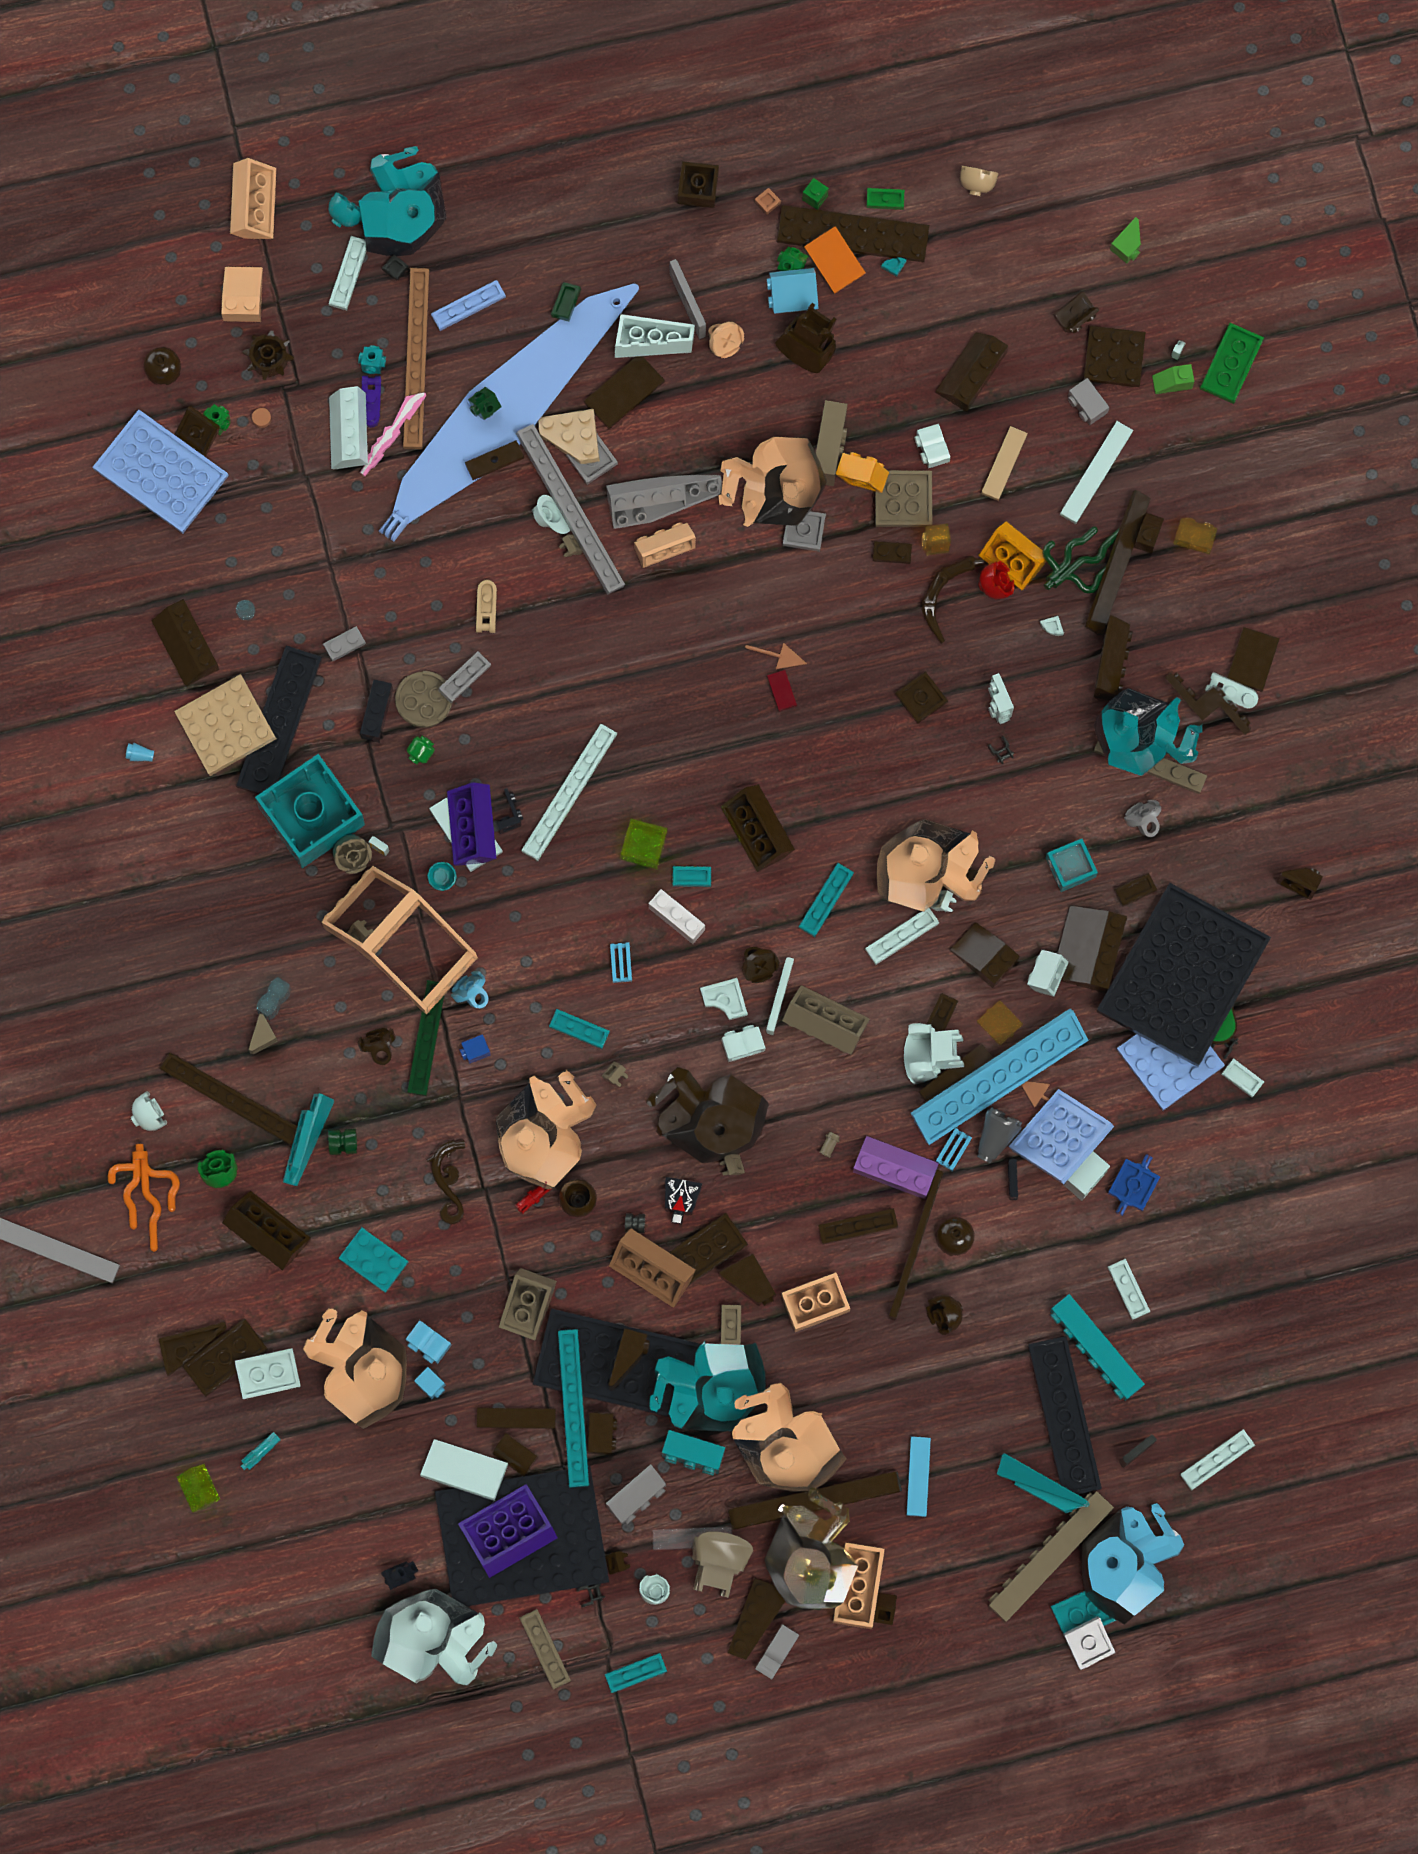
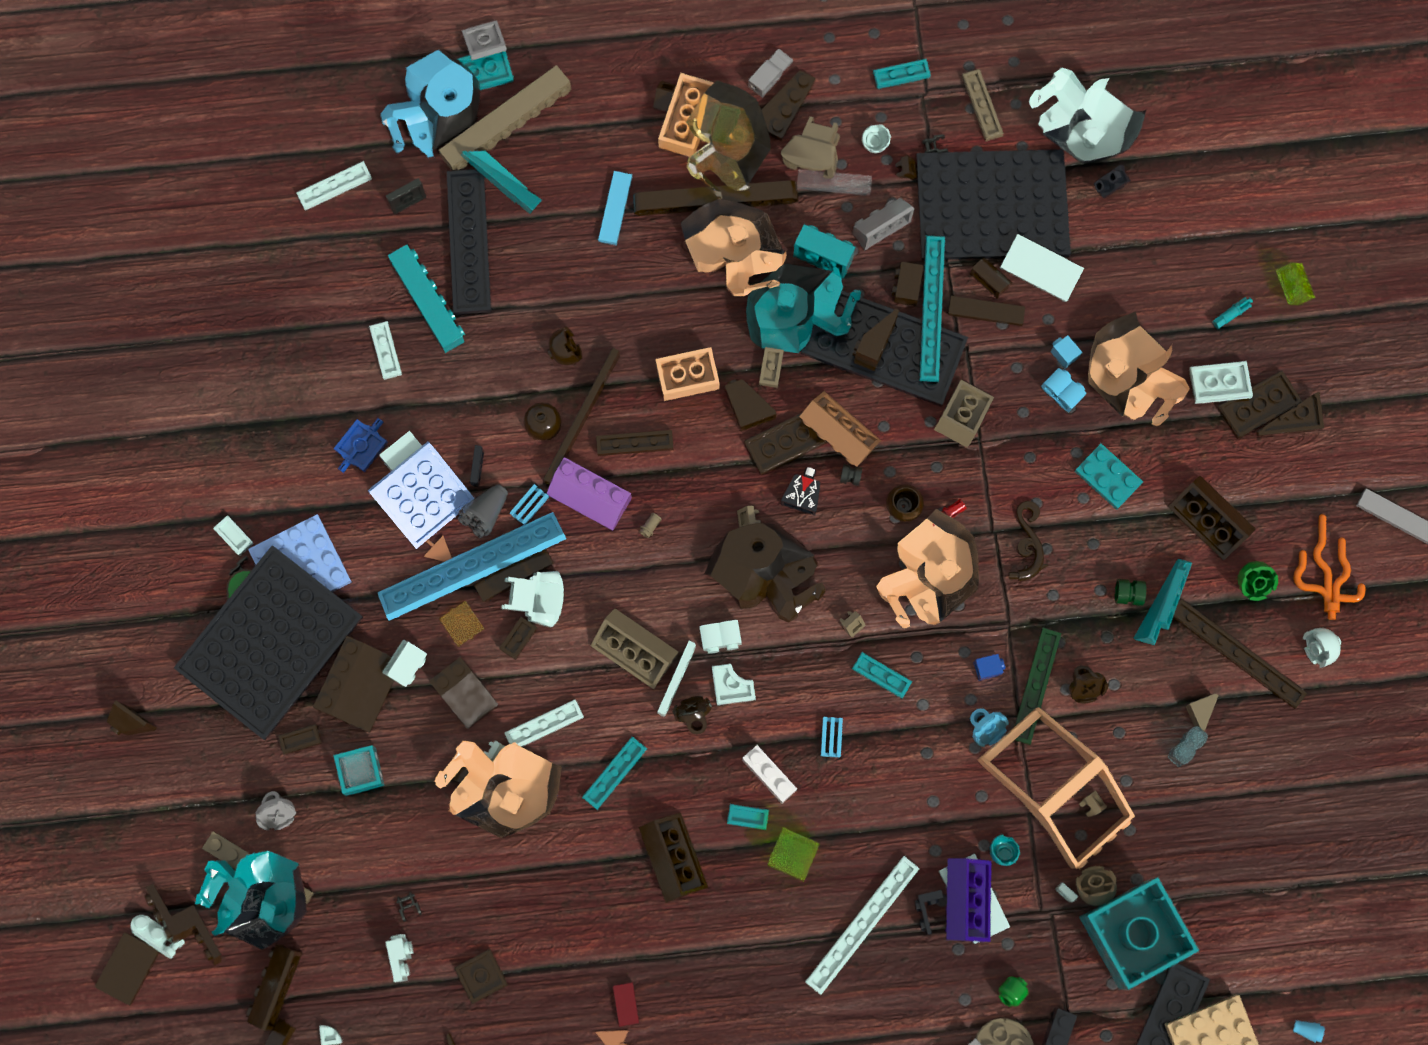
camera: 170 degrees left, 0 degrees up
(508, 1530) = (1008, 204): dark purple slope -> none

